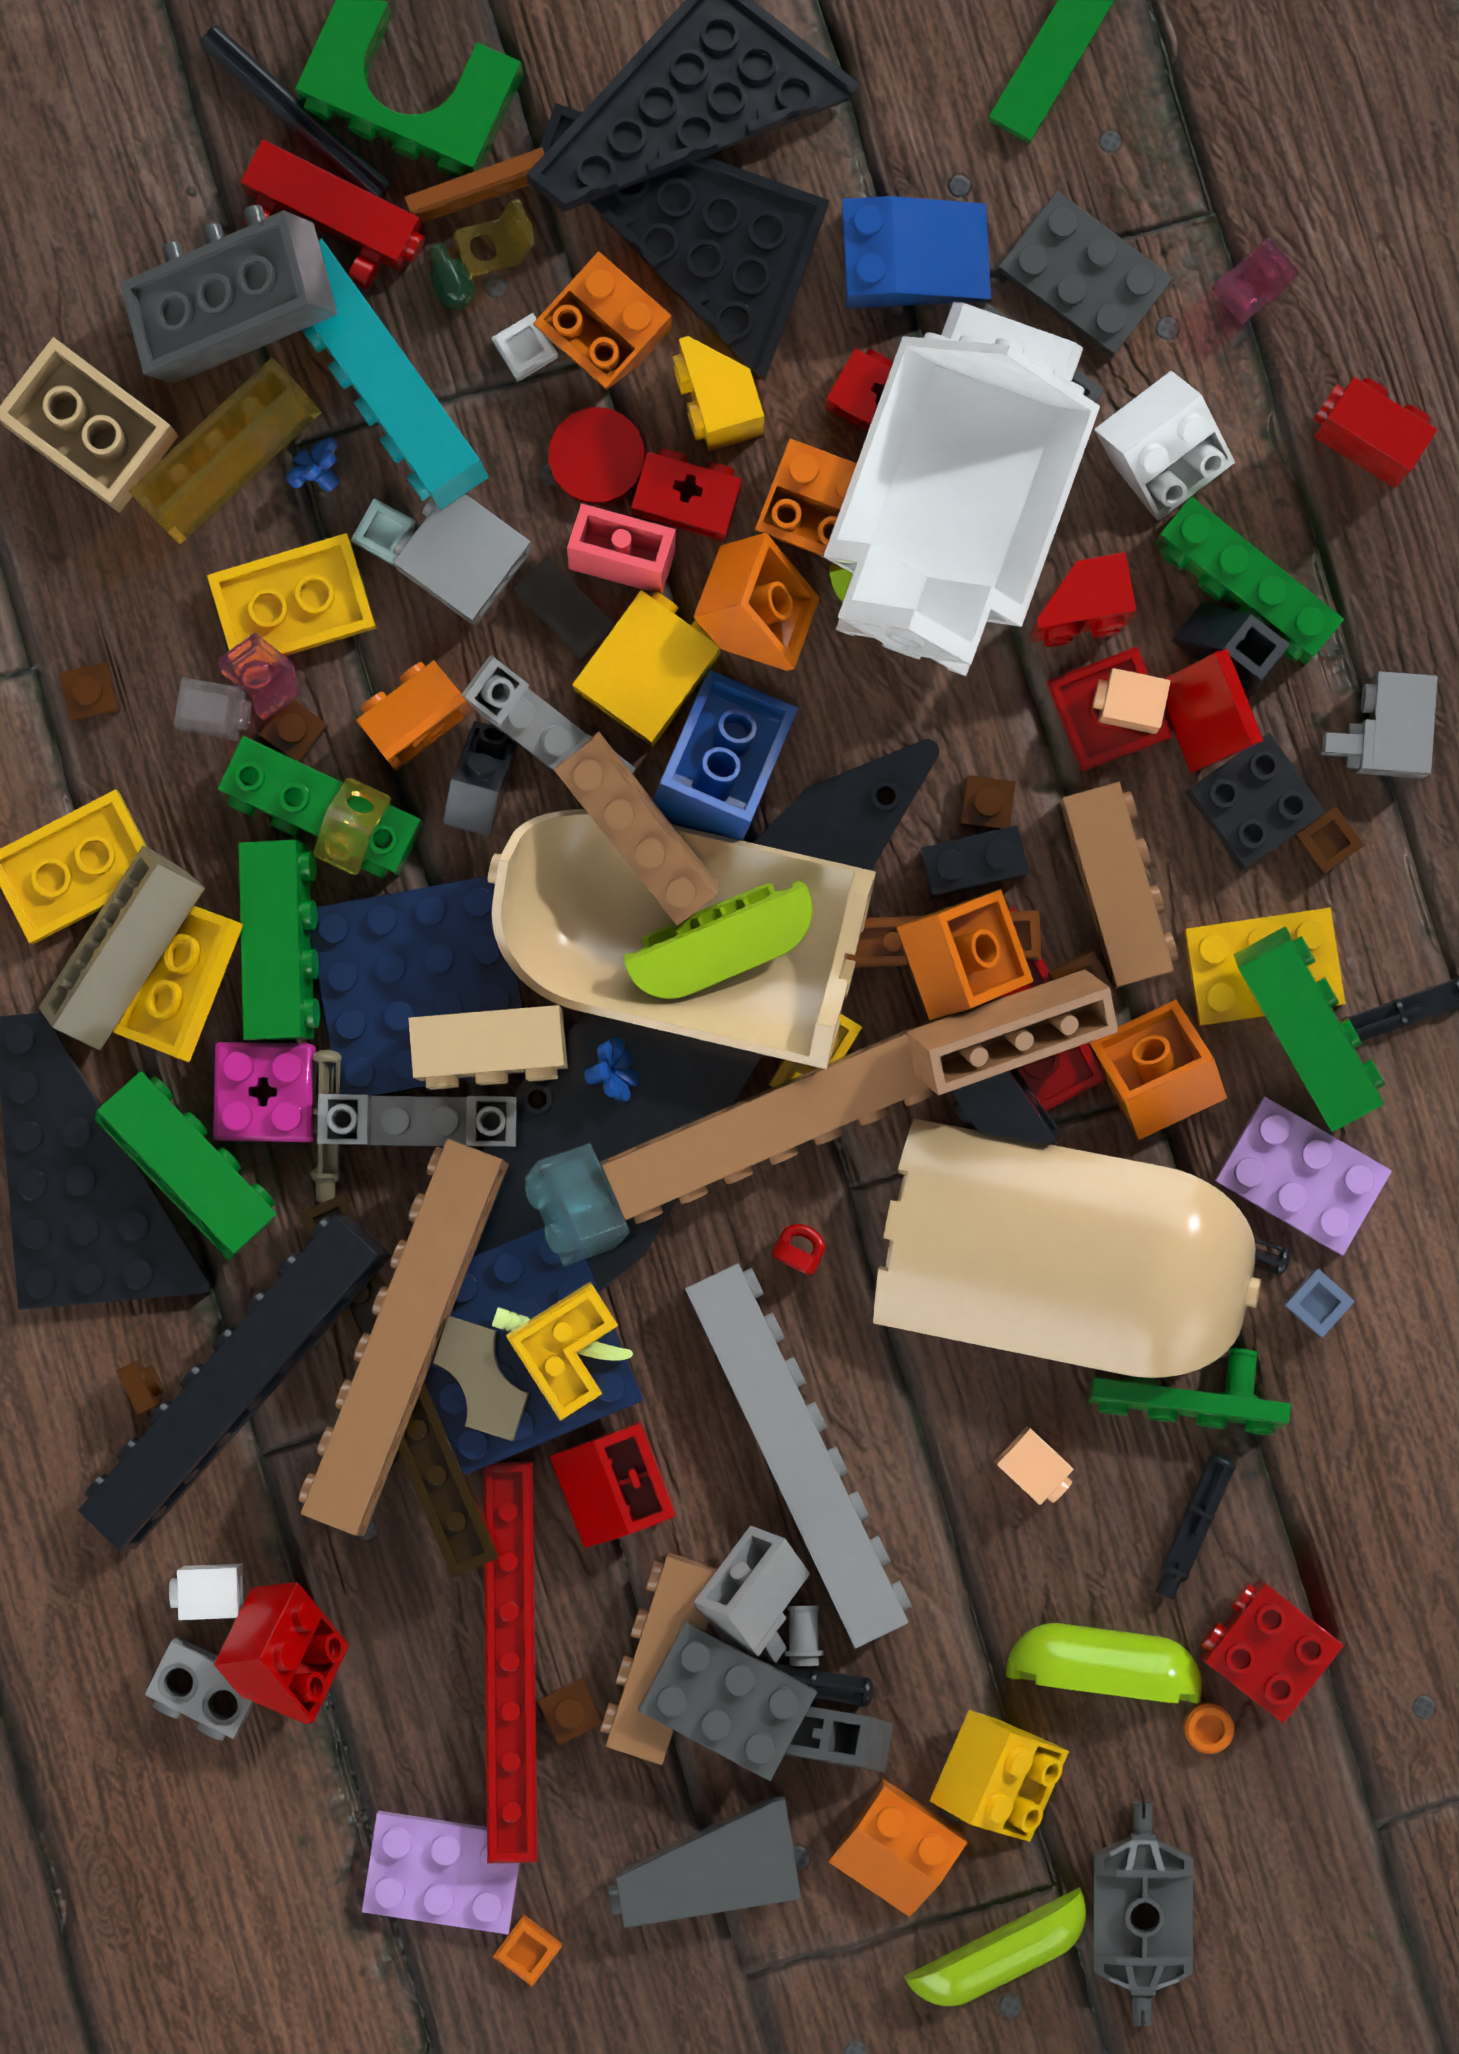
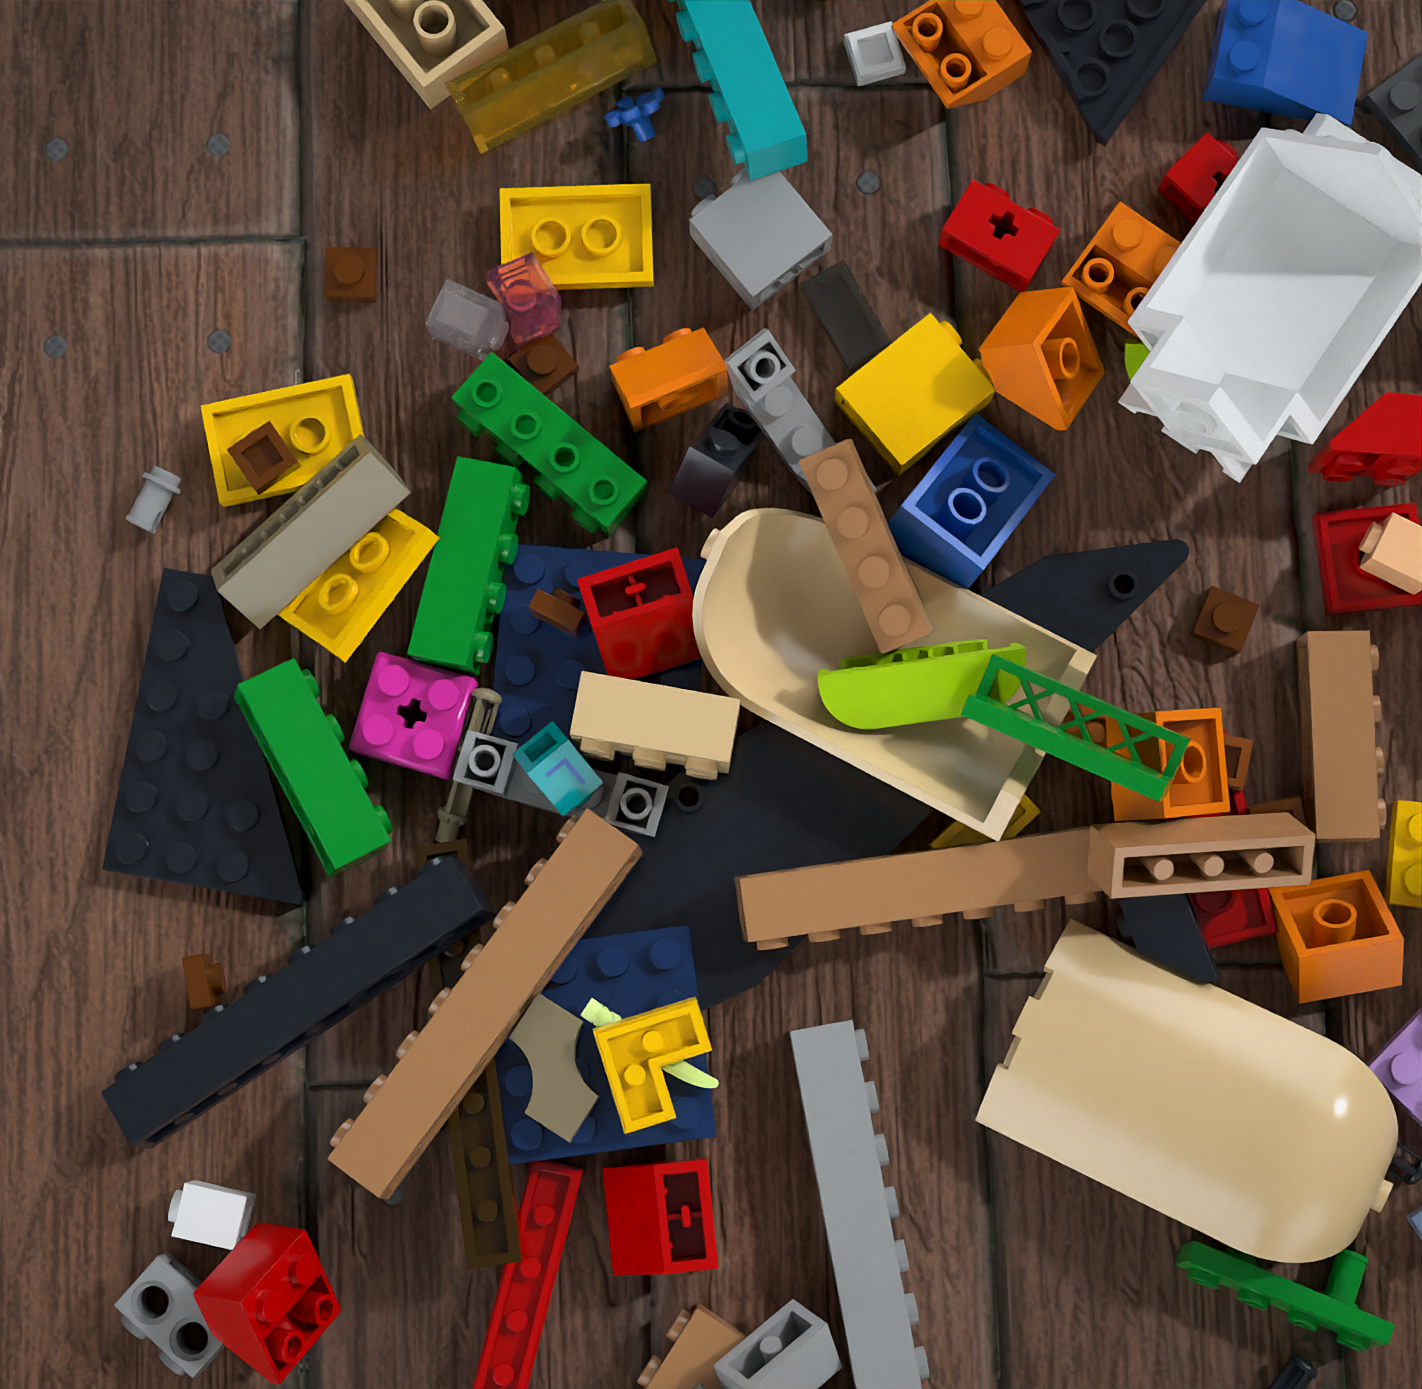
camera: 15 degrees right, 5 degrees down
(59, 891) = (263, 457): none -> reddish brown plate
(347, 832) = (570, 472): clear yellow bracket -> none
(372, 961) = (559, 611): none -> reddish brown plate
(382, 530) = (683, 191): light aqua tile -> none
(410, 1108) = (558, 769): none -> teal brick
(449, 948) = (642, 615): none -> red slope
(576, 1205) = (701, 913): clear light blue brick -> none
(596, 455) = (918, 175): red tile -> none
(613, 1070) = (774, 786): blue plant -> none
(621, 549) = (920, 268): coral brick -> none
(723, 395) = (1061, 142): yellow slope -> none
(796, 1257) = (911, 1029): red tile -> none
(868, 967) = (1071, 747): none -> green fence
(973, 862) = (1197, 674): black brick -> none
(1035, 1467) = (1106, 1318): light nougat brick -> none

